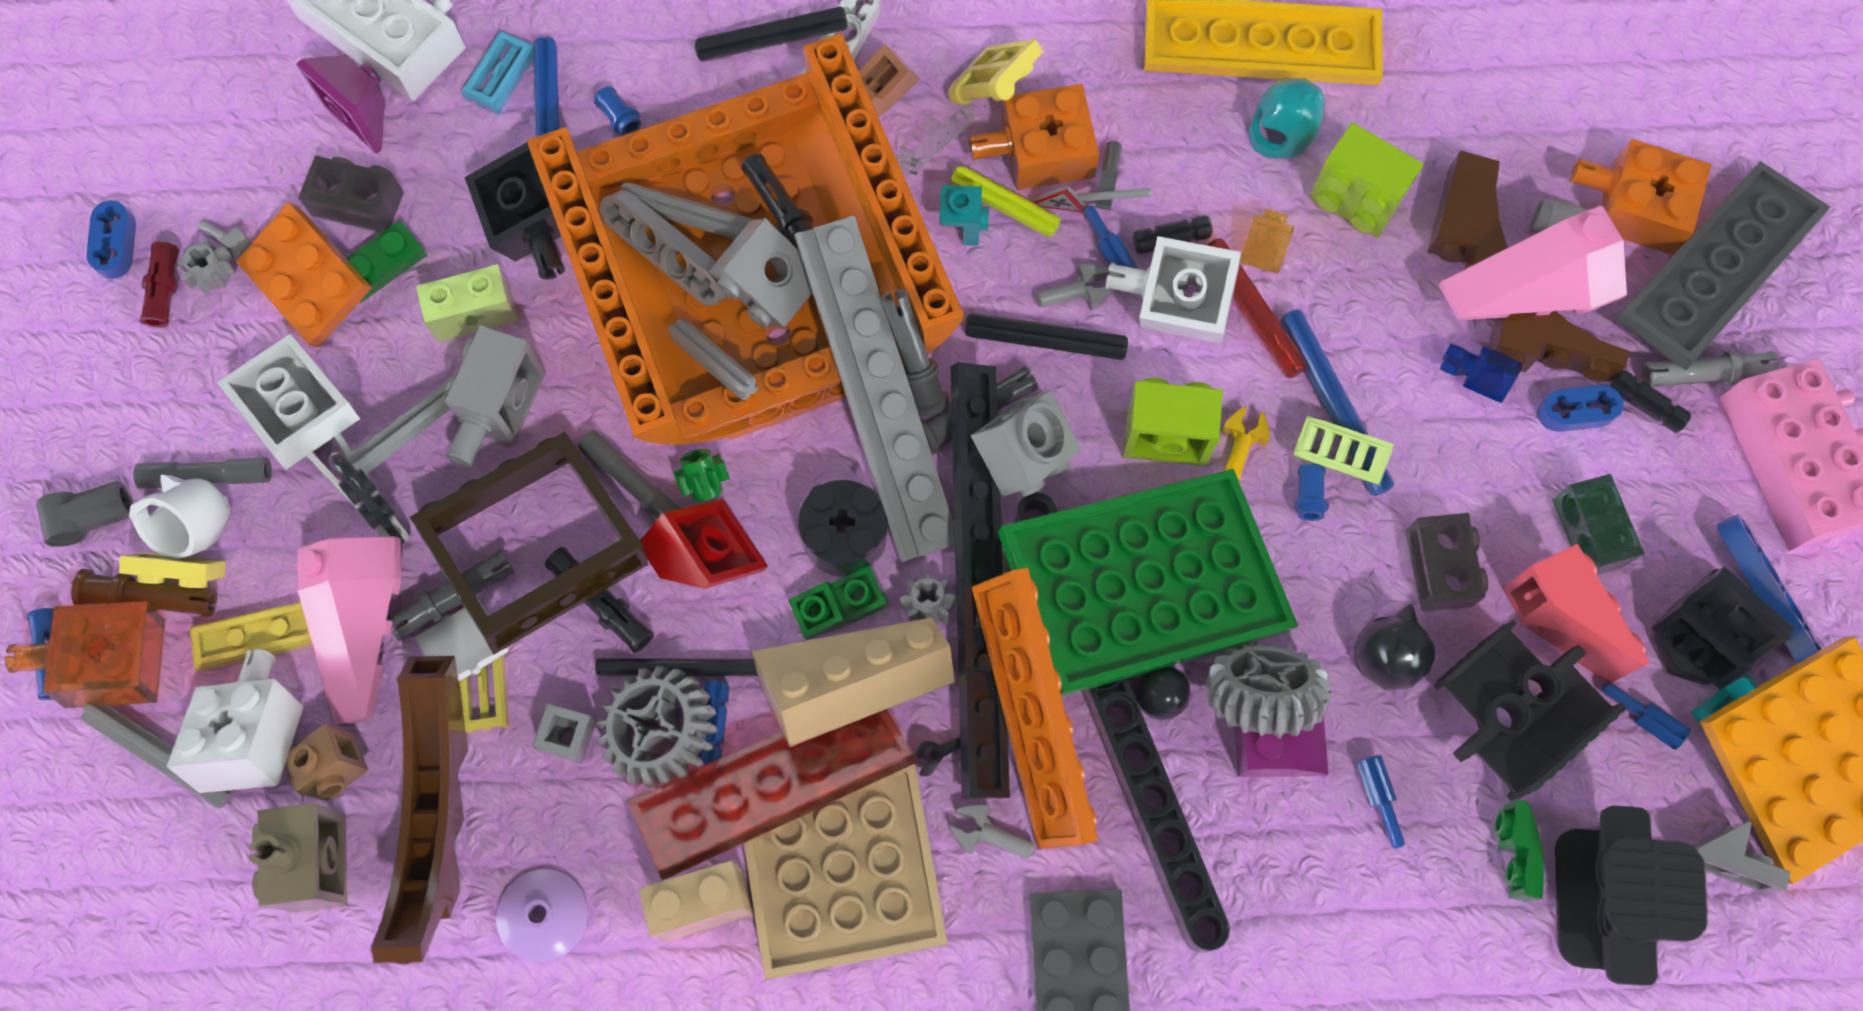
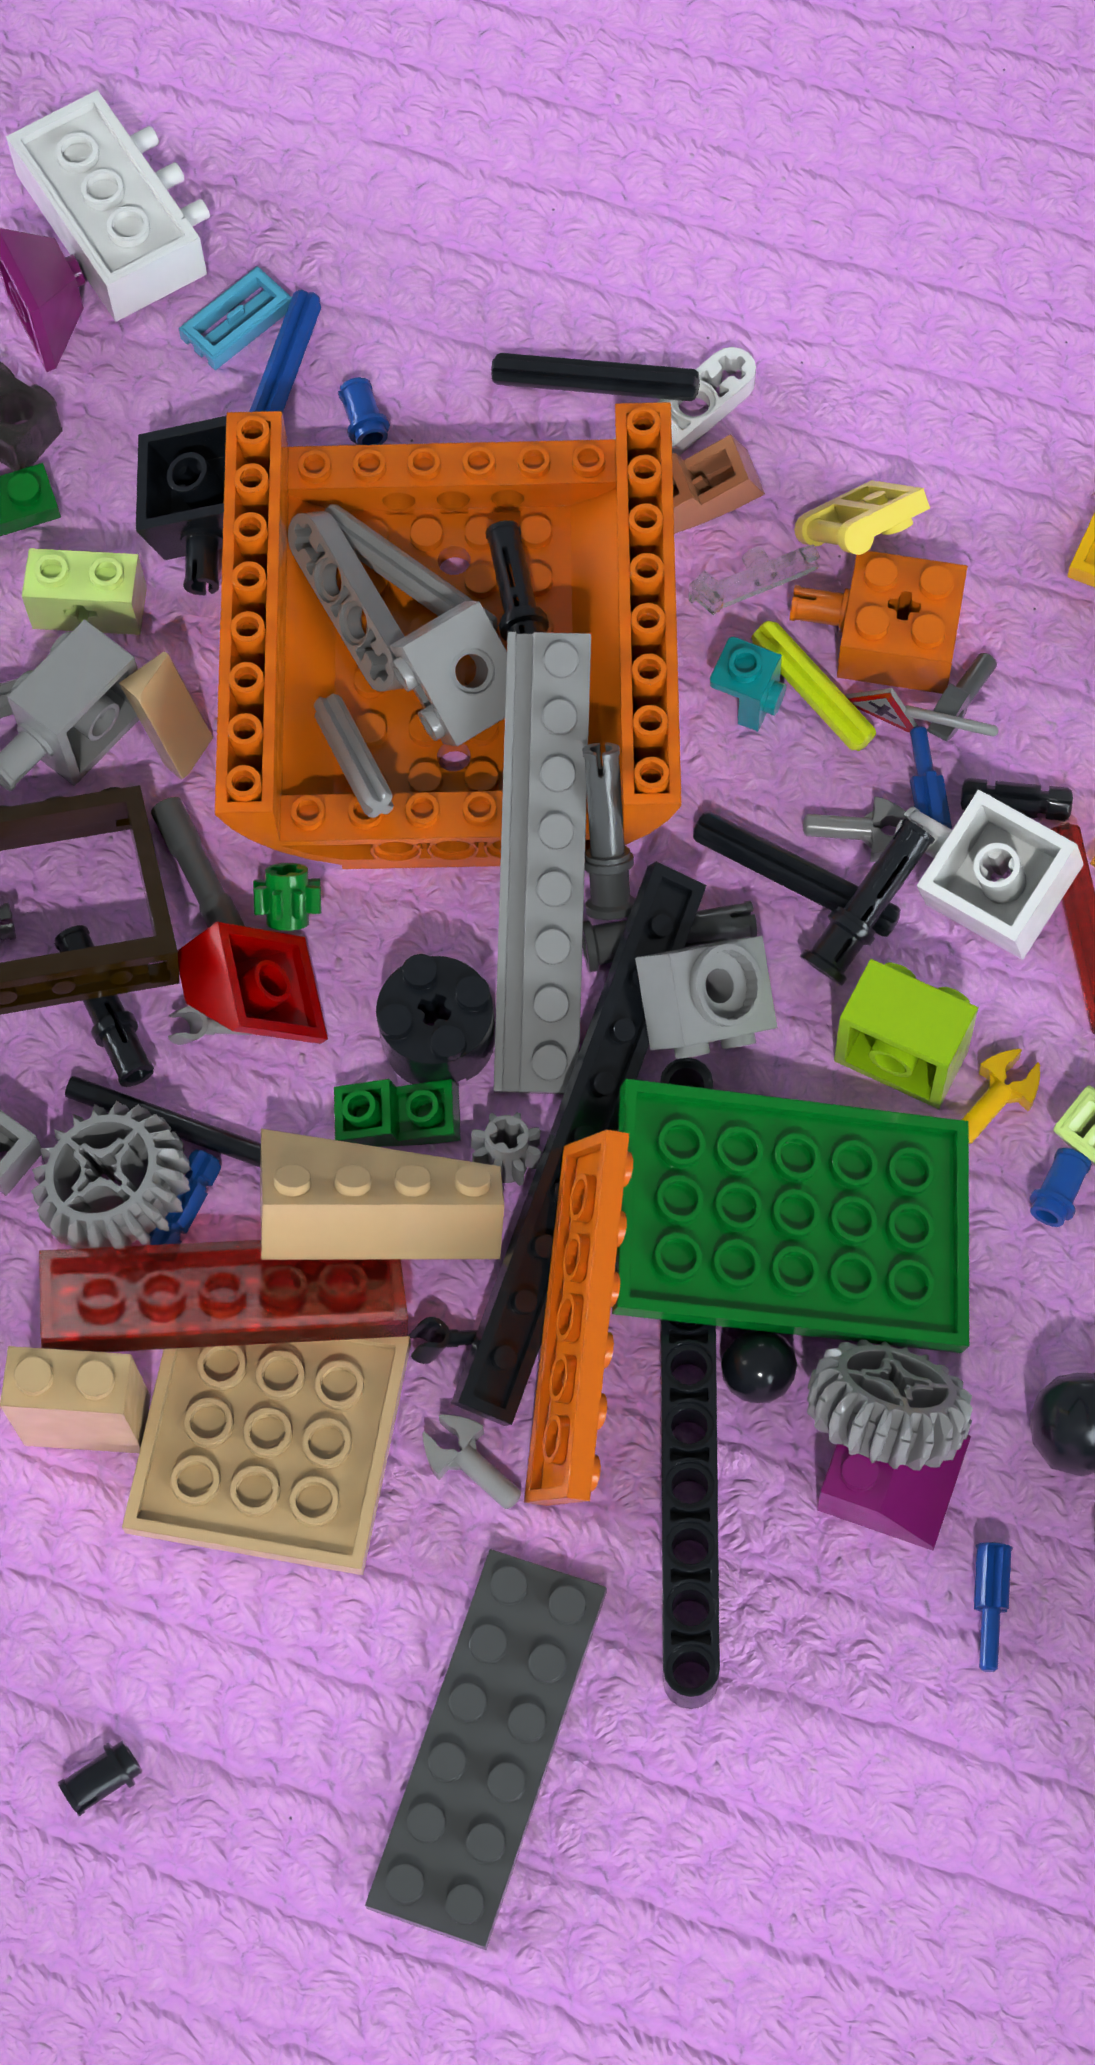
camera: 25 degrees right, 5 degrees down
(564, 372) = (168, 714): none -> tan slope
(673, 591) = (199, 1026): none -> light grey hand
(1103, 358) = (853, 924): none -> black pin

